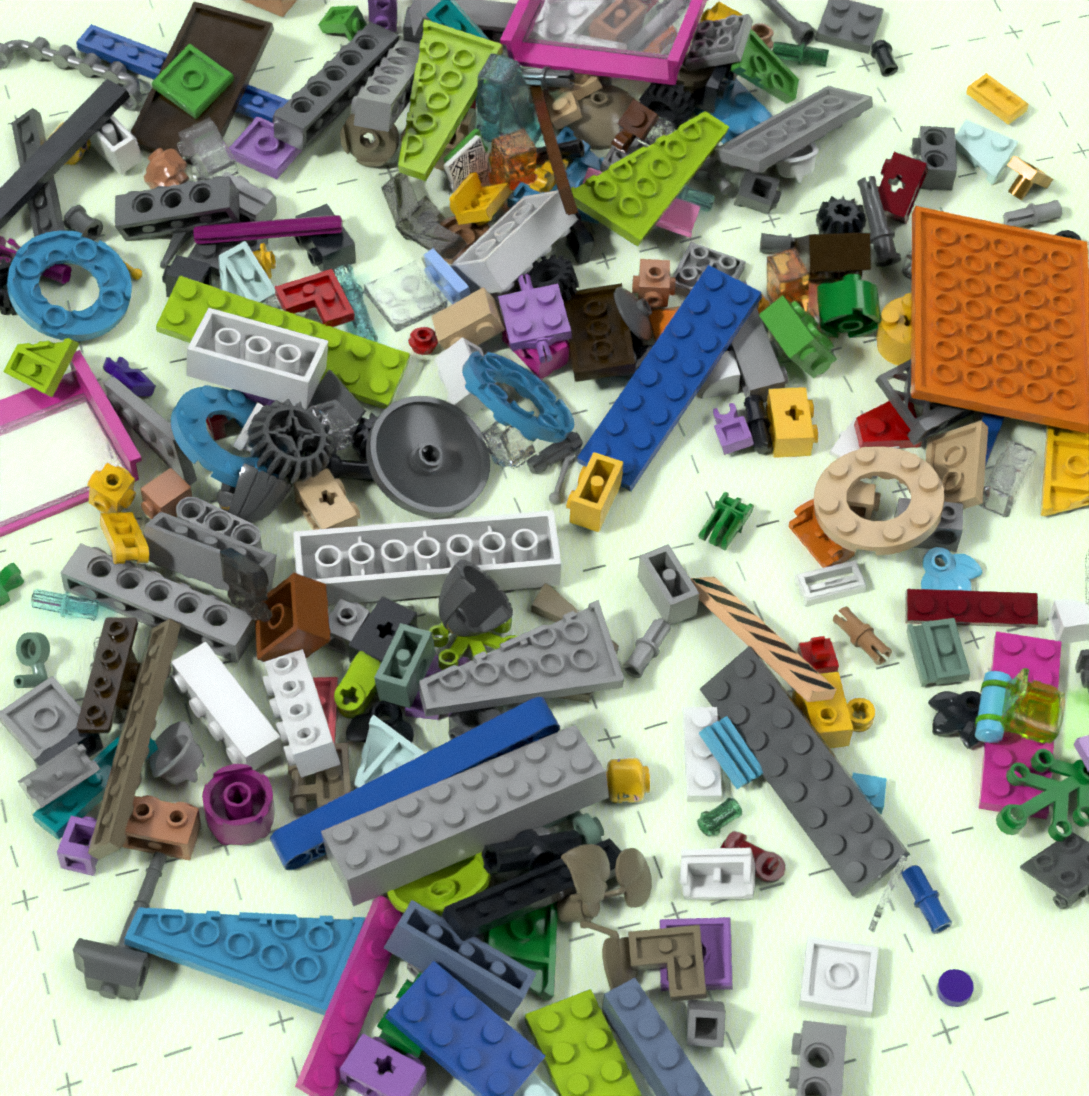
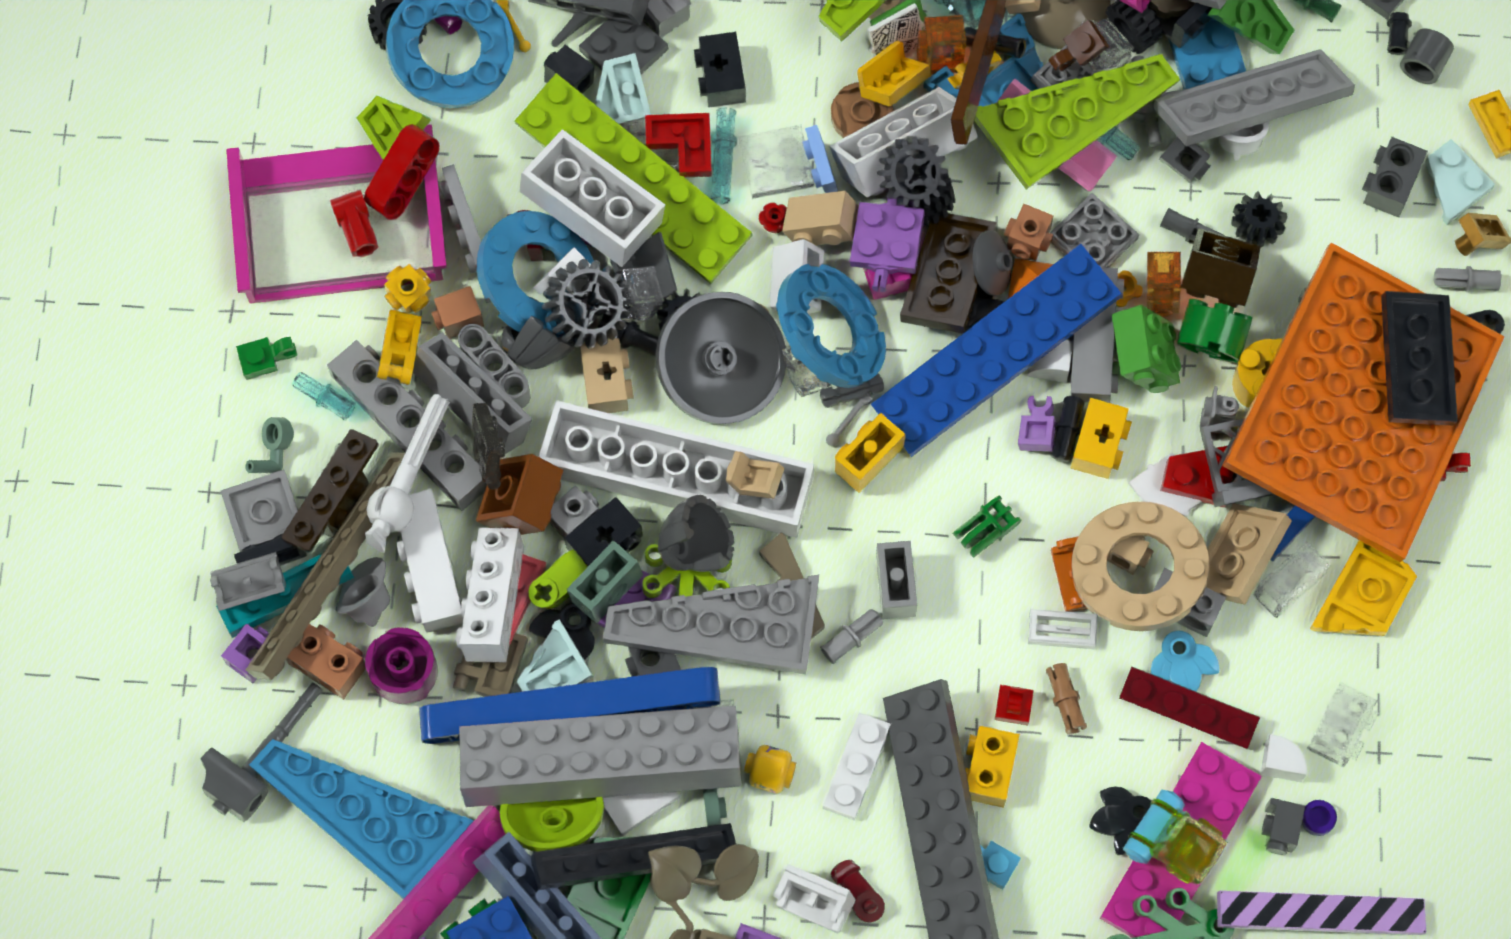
camera: 25 degrees right, 15 degrees up
(33, 446) = (353, 218): none -> red piece
(68, 394) = (401, 172): none -> red beam
(131, 378) = (471, 169): dark purple plate -> none
(177, 662) = (391, 506): none -> white piece
(266, 259) = (652, 74): yellow plate -> none
(268, 229) = (665, 44): magenta axle -> none
(420, 219) = (824, 76): clear smoke plate -> none
(507, 532) = (754, 476): none -> tan bracket
(528, 851) = (646, 815): black piece -> none
(534, 252) = (899, 171): none -> black gear
(580, 241) = (977, 157): black plate -> none
(712, 821) = (843, 838): clear green pin -> none
(735, 750) = (893, 774): medium azure tile -> none
(763, 640) = (959, 672): light nougat tile -> none
(865, 706) = (1036, 784): yellow bush -> none
(880, 361) = (1218, 410): none -> light grey hinge
(881, 235) = (1291, 255): dark grey pin -> none
(912, 175) = (1351, 199): dark red brick -> none
(916, 65) = (1426, 56): none -> dark grey piece
(938, 652) = (1133, 743): sand green plate -> none
(1031, 270) = (1419, 358): none -> black plate

